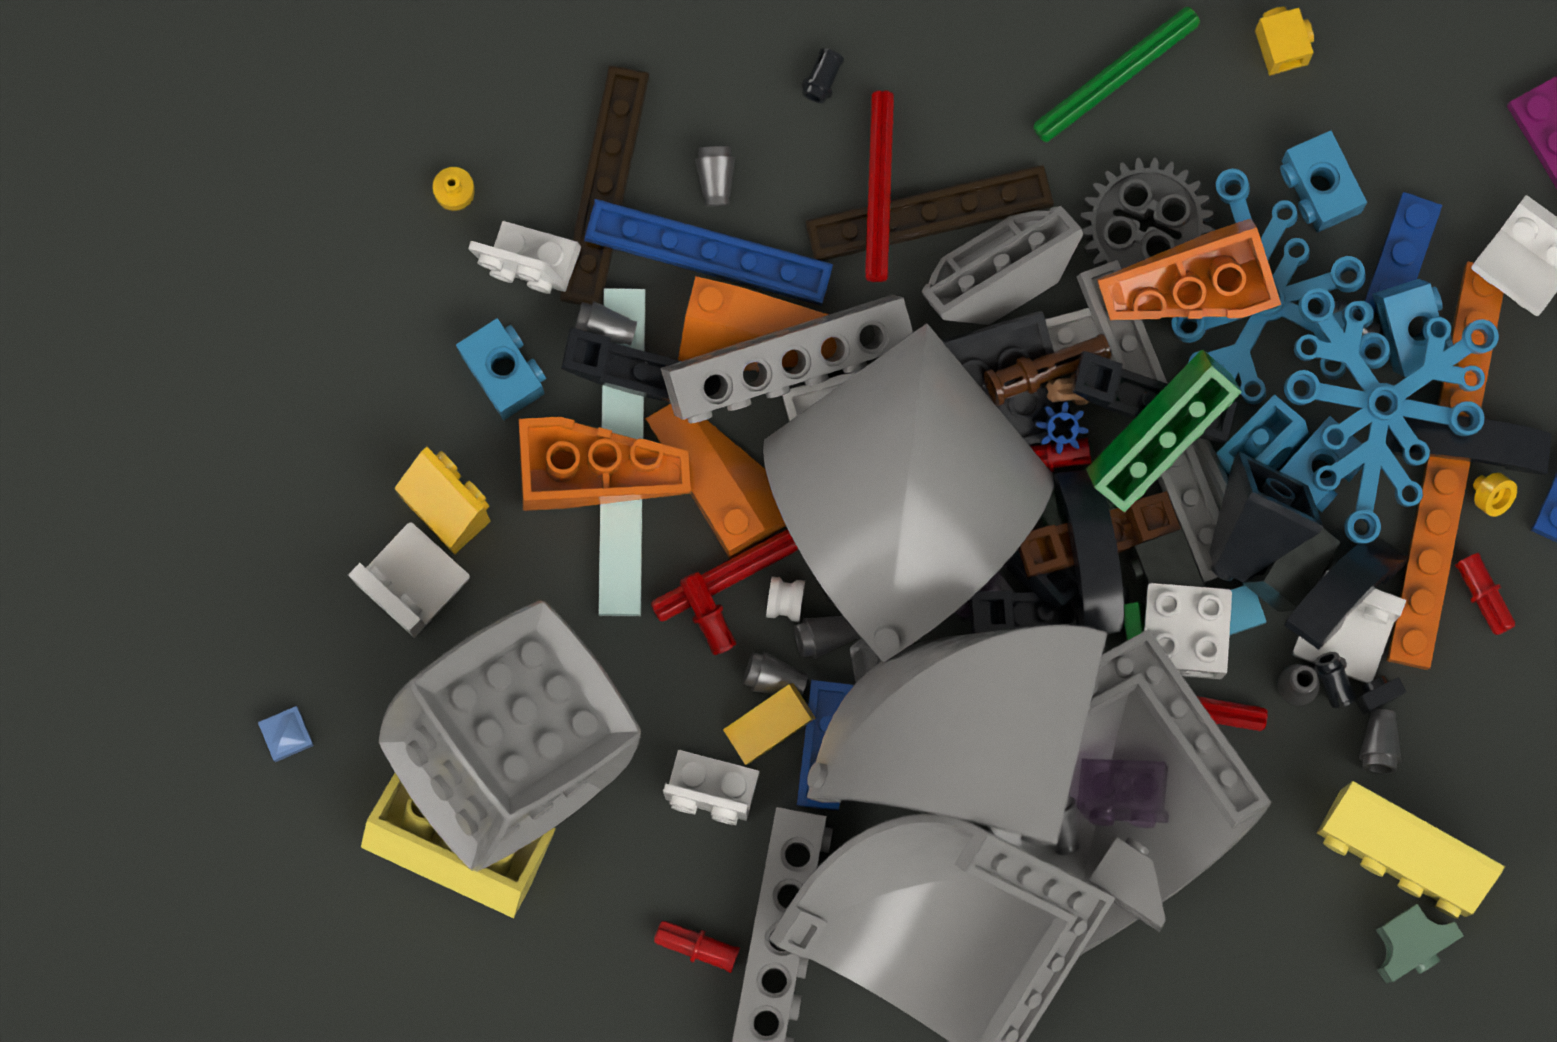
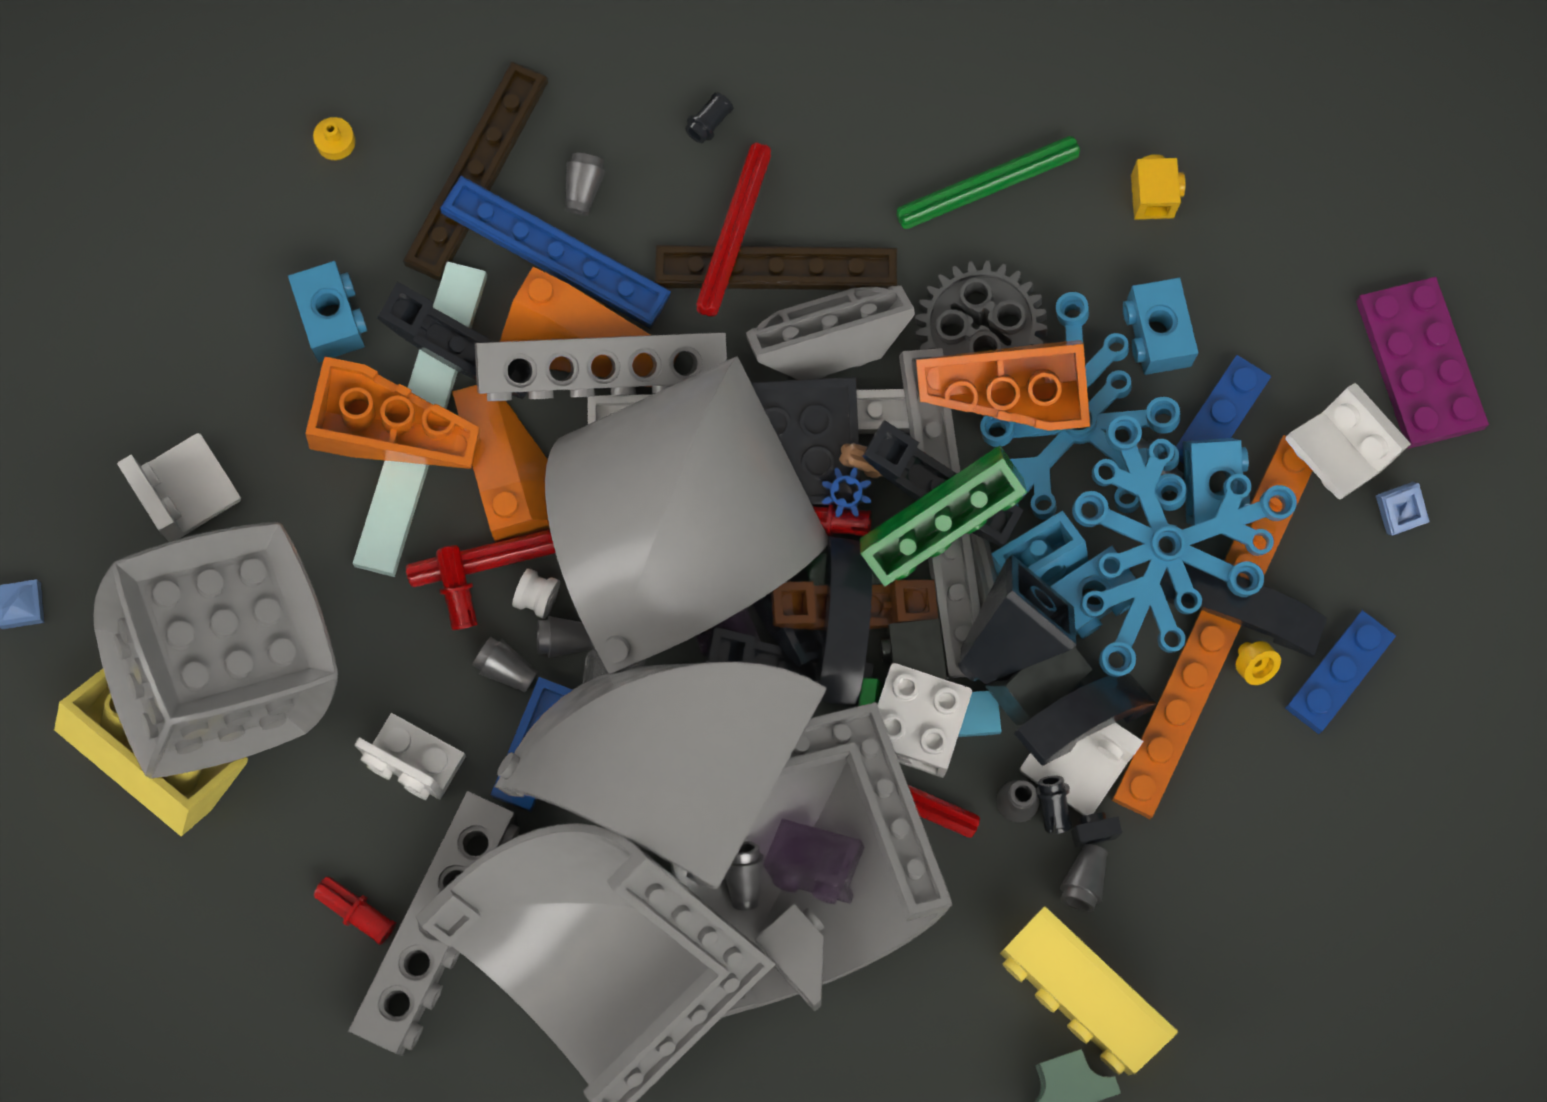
camera: 10 degrees right, 5 degrees down
(441, 501) = (234, 417): yellow slope -> none
(529, 256) = (383, 213): white bracket -> none
(606, 322) = (437, 289): flat silver cone -> none
(769, 723) = (486, 709): yellow tile -> none
(1026, 369) = (824, 429): reddish brown pin -> none
(1486, 594) = (1225, 758): red axle -> none

